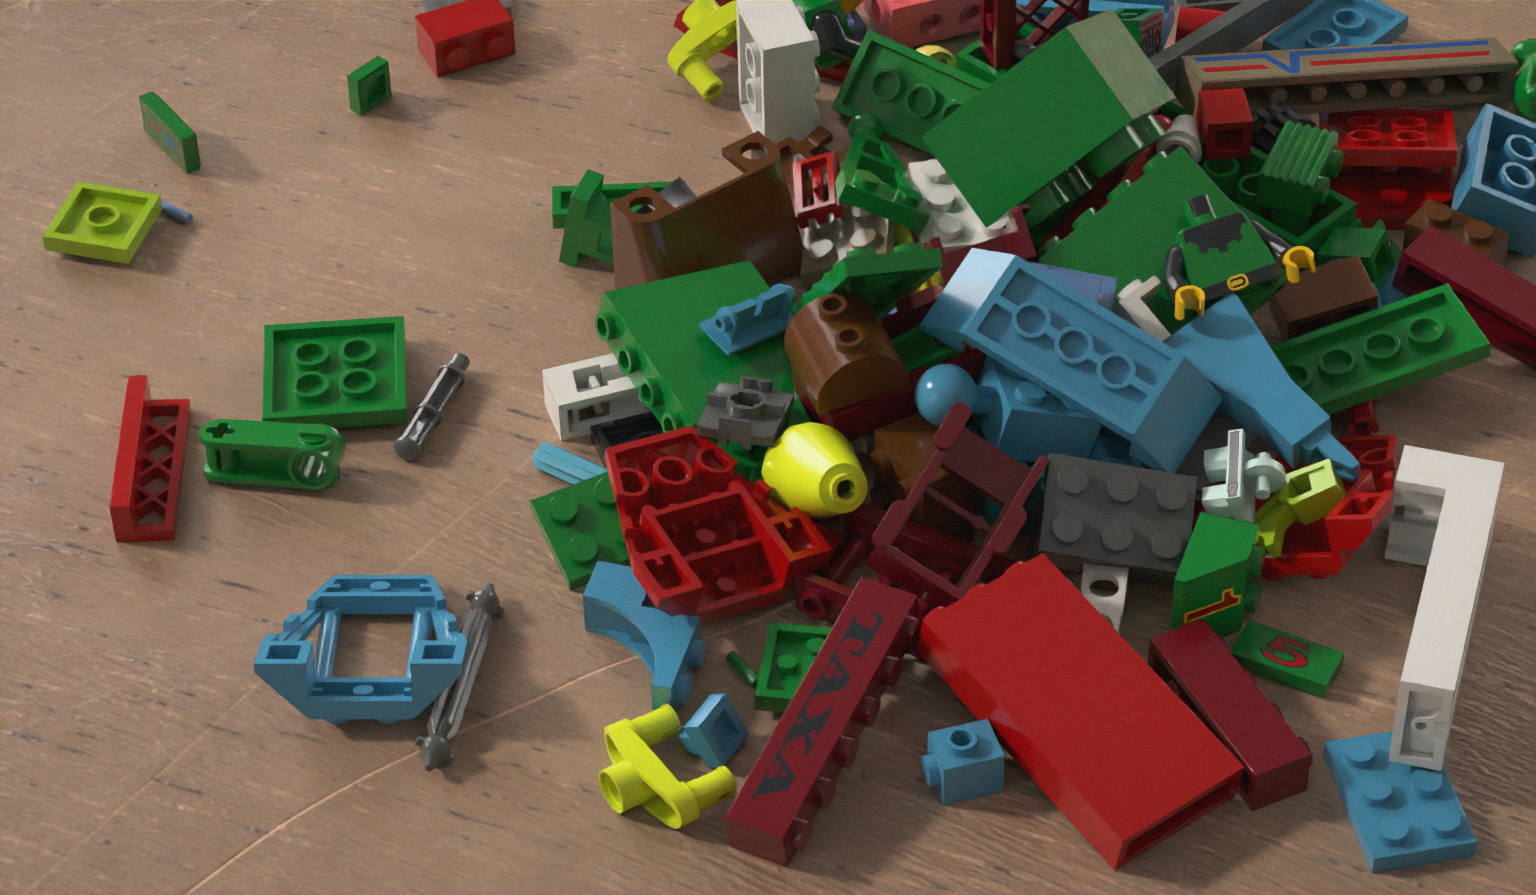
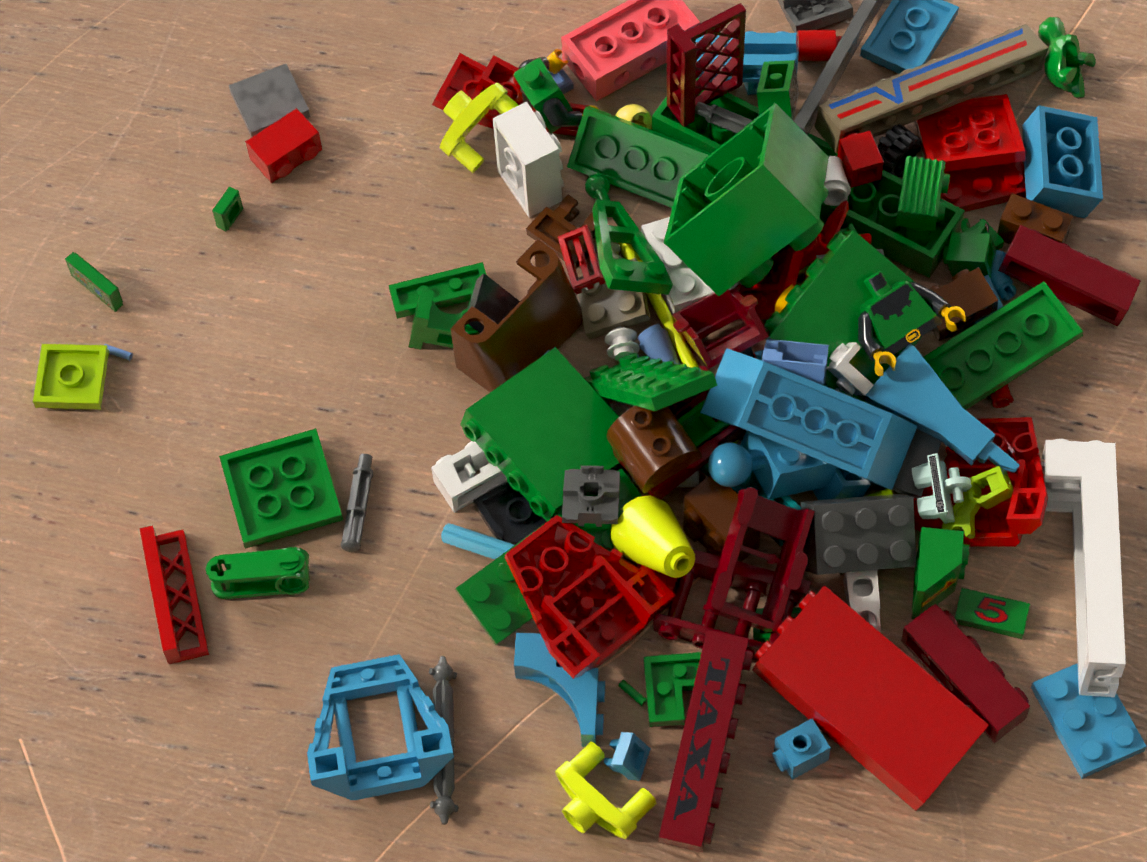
camera: 10 degrees left, 20 degrees up
(751, 320) = (573, 408): dark azure hinge -> none

